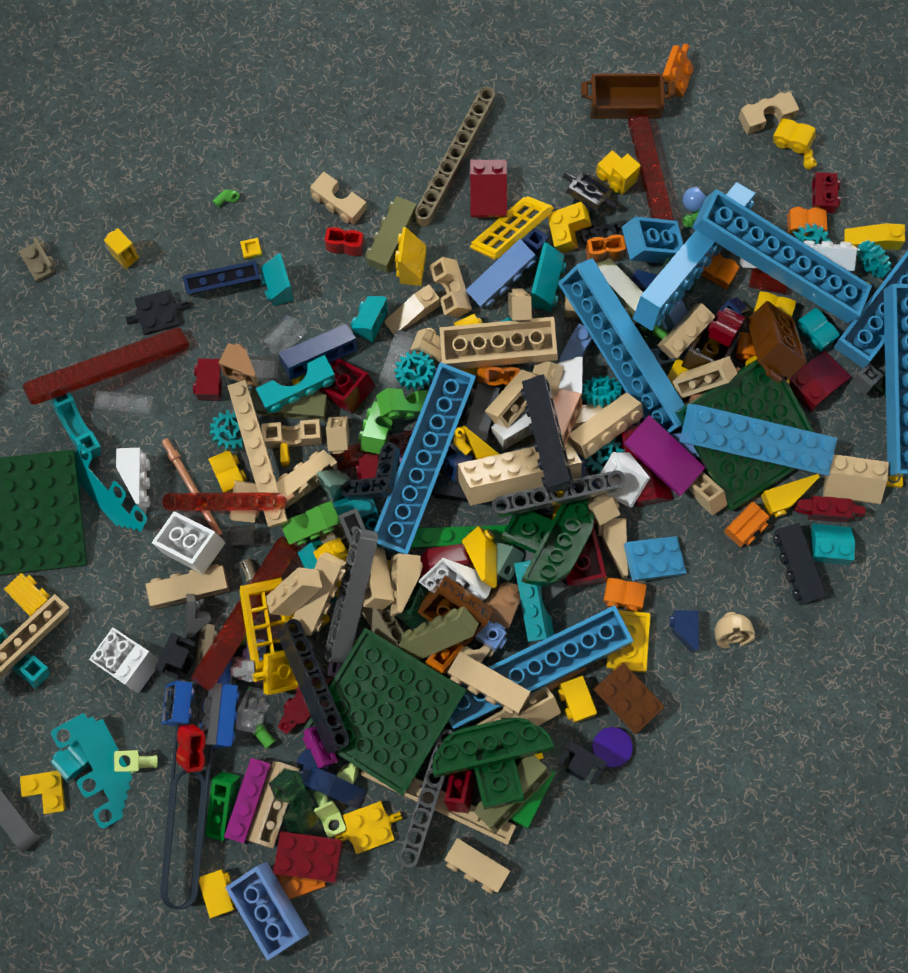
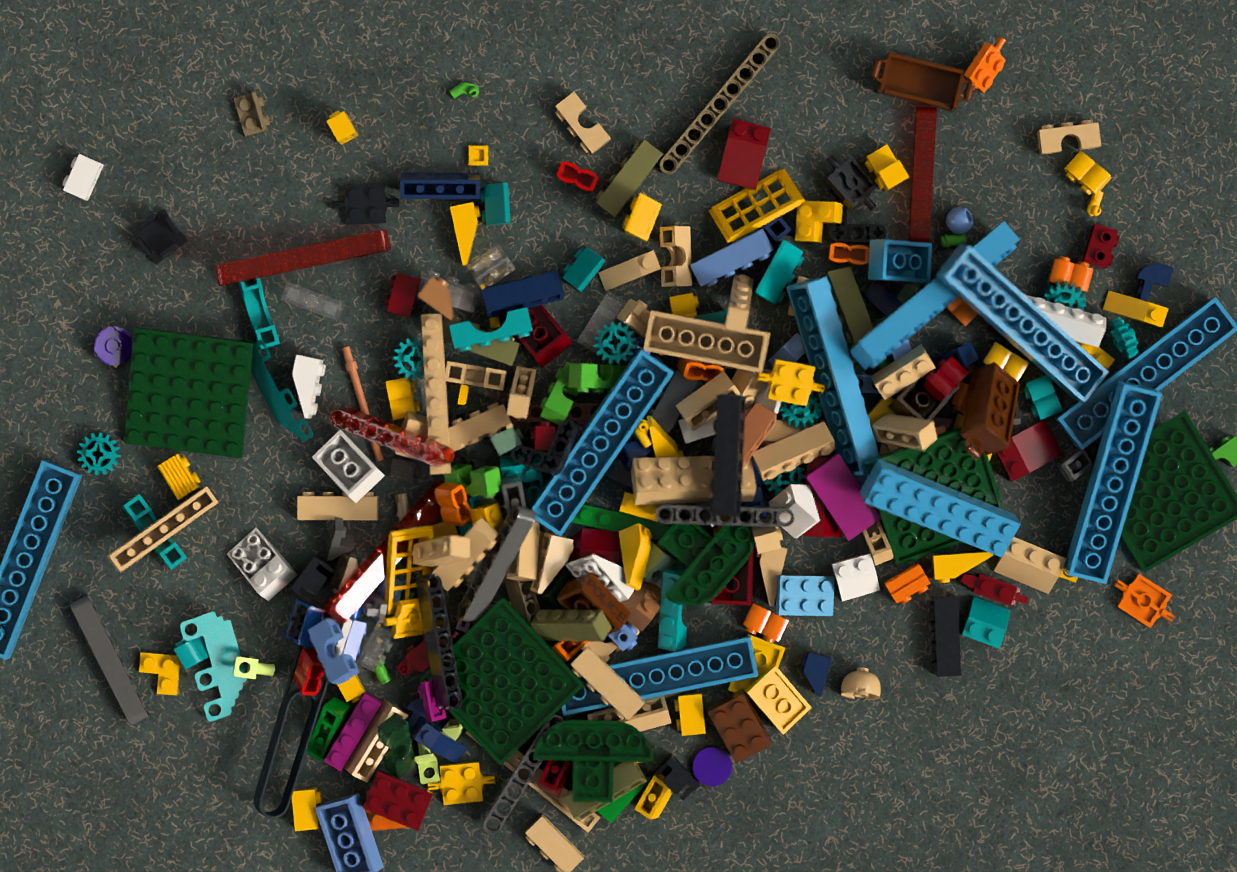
camera: 10 degrees right, 15 degrees up
(197, 707) = (324, 638): none -> medium blue arch
(236, 757) = (352, 689): none -> yellow brick
(252, 305) = (465, 226): none -> yellow slope
(296, 550) = (453, 504): none -> orange brick
(476, 515) = (644, 511): none -> yellow brick
(564, 790) = (654, 798): none -> yellow brick
(586, 360) = (790, 382): none -> yellow plate
(657, 663) = (778, 699): none -> yellow plate
(697, 530) = (855, 576): none -> white slope
(881, 204) = (1152, 274): none -> dark blue brick

